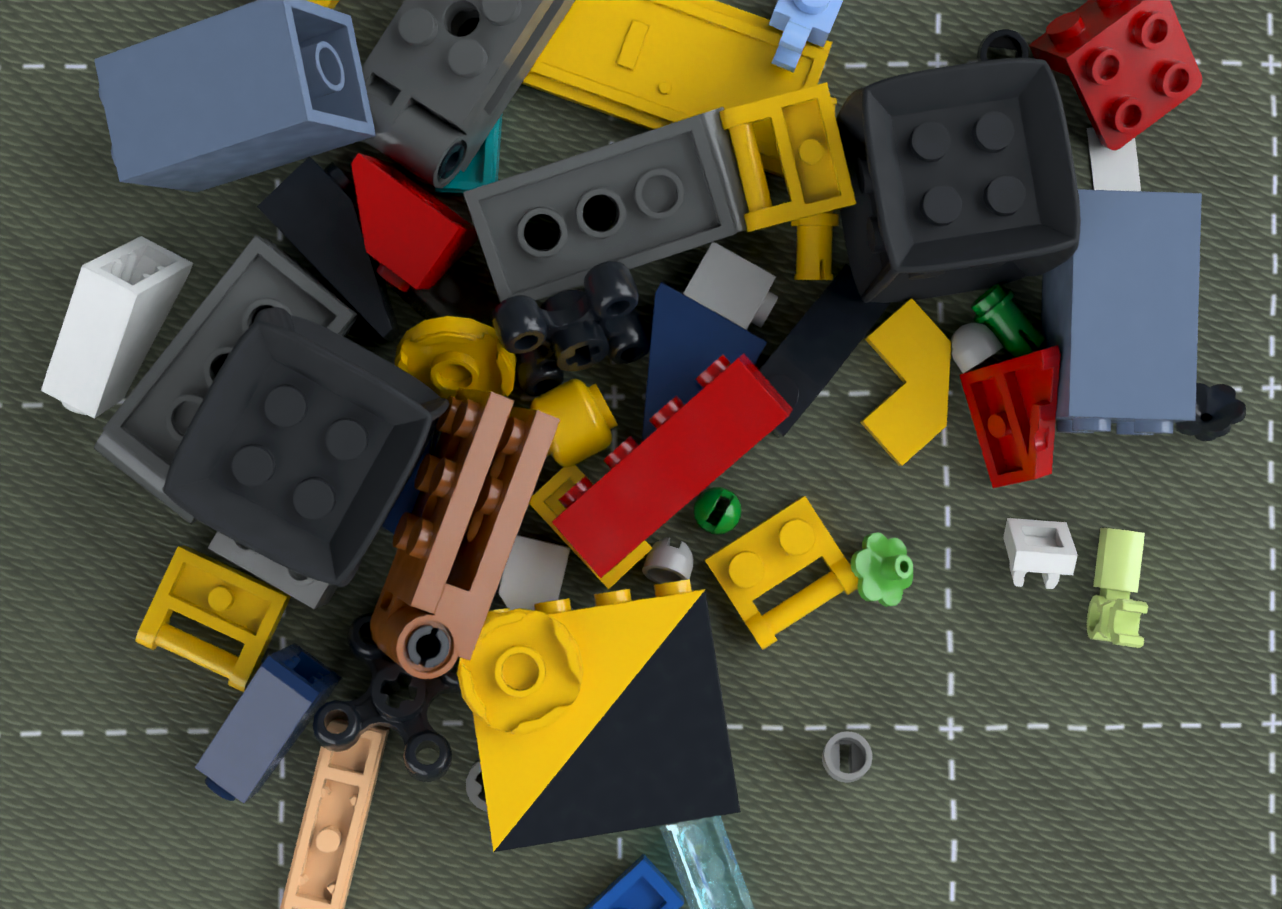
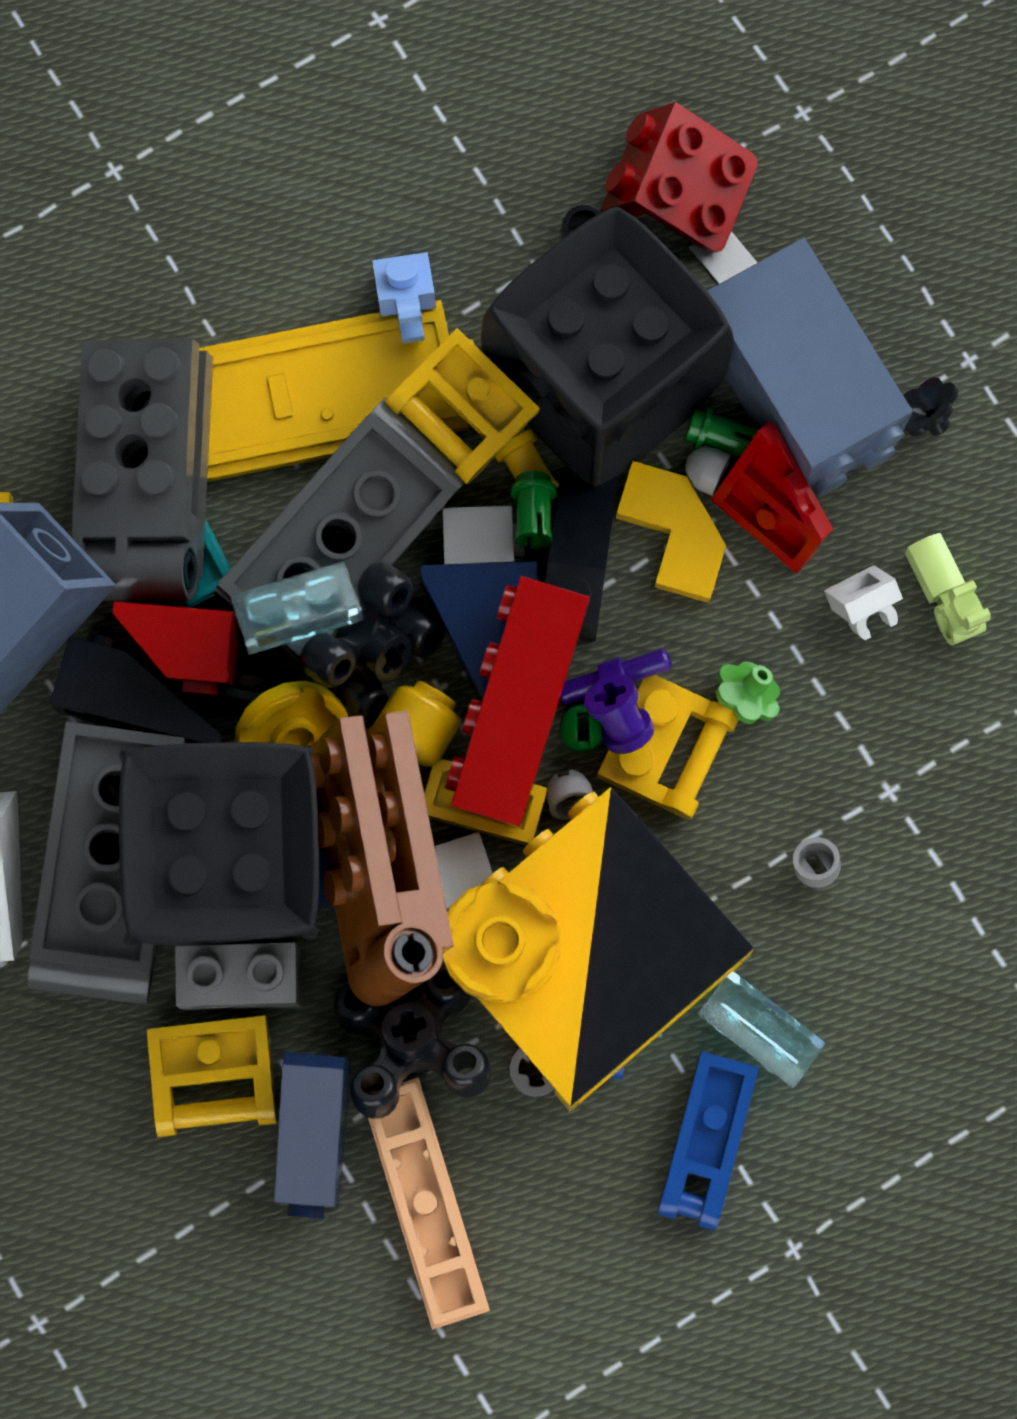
camera: 30 degrees left, 10 degrees down
(519, 259) = (296, 607): none -> clear light blue plate
(758, 509) = (613, 698): none -> dark purple piece
(794, 291) = (533, 508): none -> green pin

